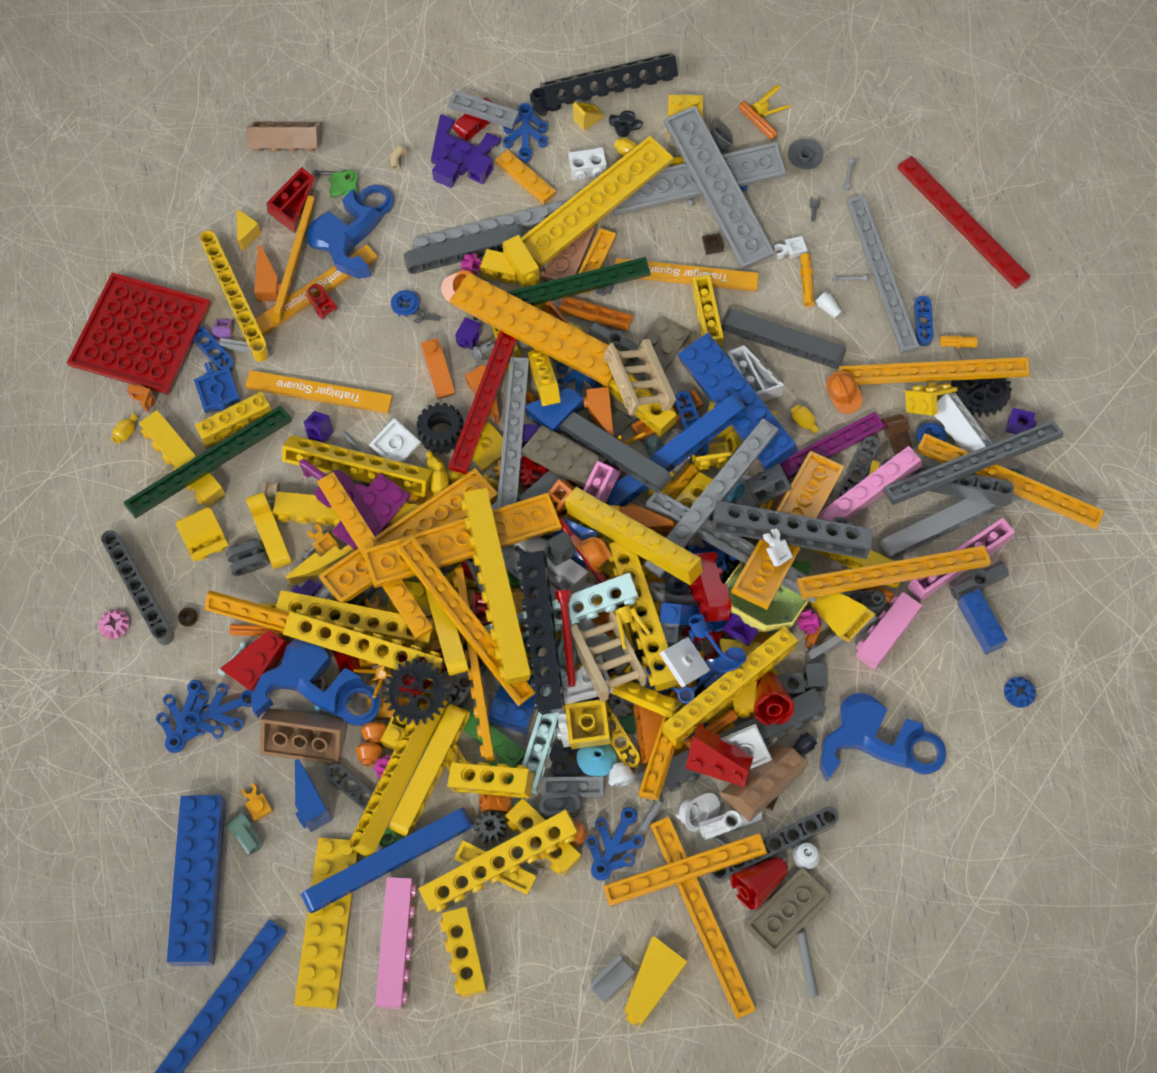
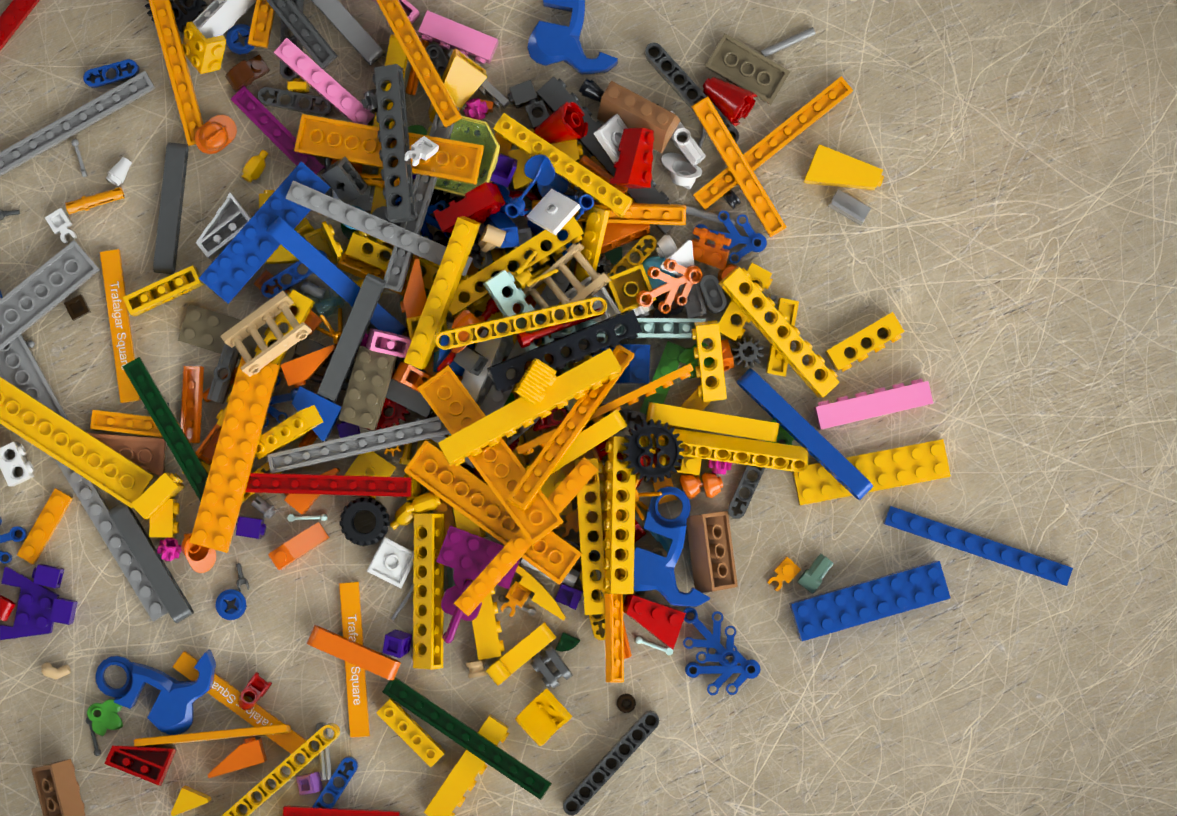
camera: 105 degrees left, 20 degrees up
(121, 626) = (642, 771): bright pink gear -> none
(216, 389) = (381, 763): blue plate -> none
(265, 579) = (567, 642): none -> dark green tile
(308, 802) = (776, 519): blue slope -> none
(323, 387) = (353, 653): none -> orange beam
(457, 398) = (291, 517): none -> light aqua hinge
(517, 589) = (536, 381): none -> yellow brick
(579, 763) = (671, 286): none -> orange plant
(584, 602) = (529, 317): none -> yellow beam
(600, 781) = (682, 256): none -> white piece
(604, 813) = (708, 253): none -> orange plate
(653, 856) = (732, 199): none -> black bush
(674, 593) = (491, 238): none -> tan piece
(802, 858) = (695, 69): white cone -> none
(958, 341) = (127, 33): light orange axle -> none

